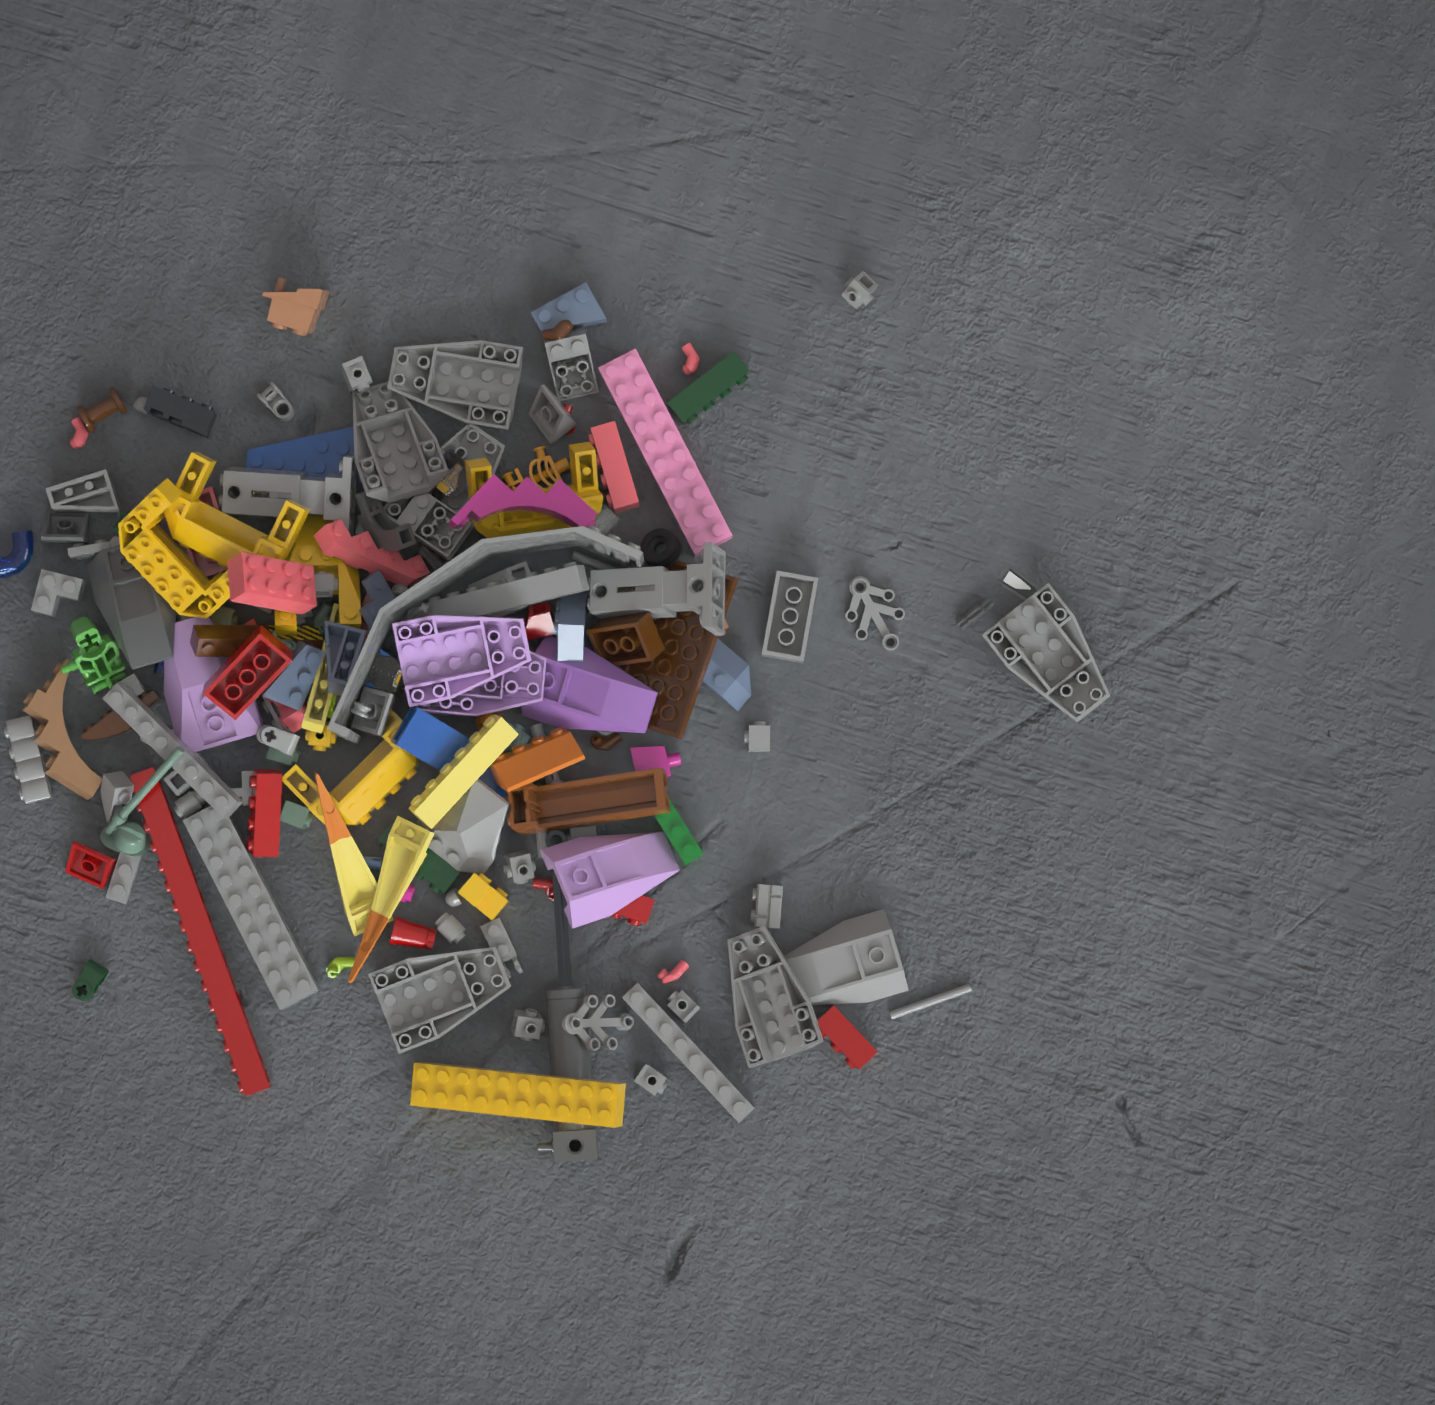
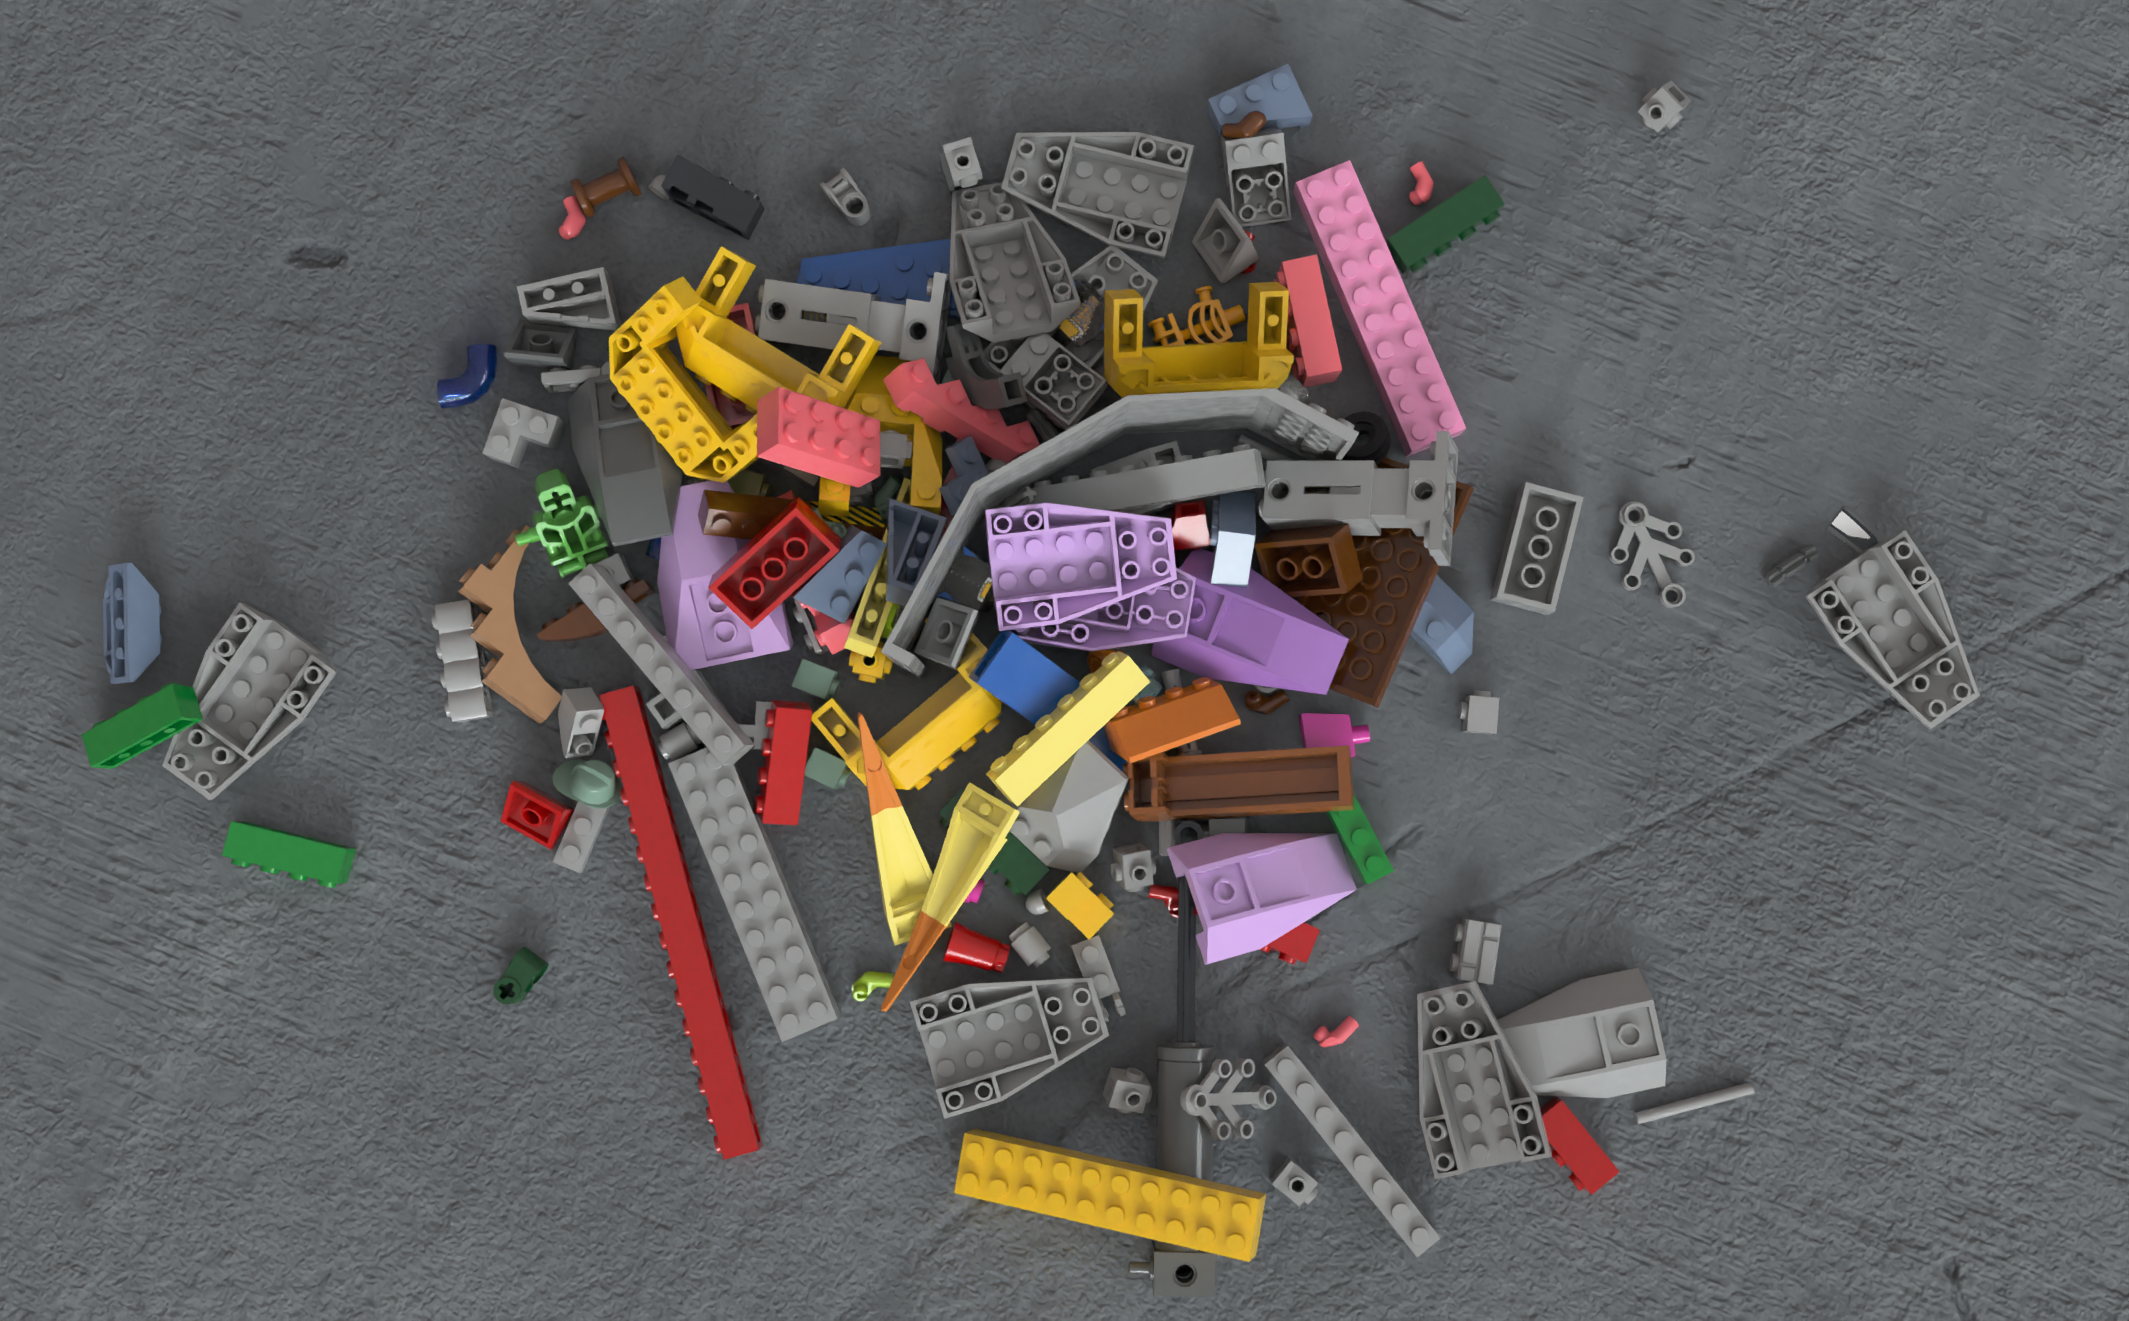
camera: 10 degrees right, 0 degrees up
(121, 816) = (582, 751): sand green bar -> none
(280, 739) = (813, 662): light grey piece -> none
(296, 309) = (884, 66): nougat piece -> none
(360, 709) = (930, 629): light grey bush -> none
(373, 862) = (929, 843): medium blue pin -> none
(496, 498) = (1150, 344): dark pink arch -> none
(691, 1006) = (1356, 1091): light grey brick -> none

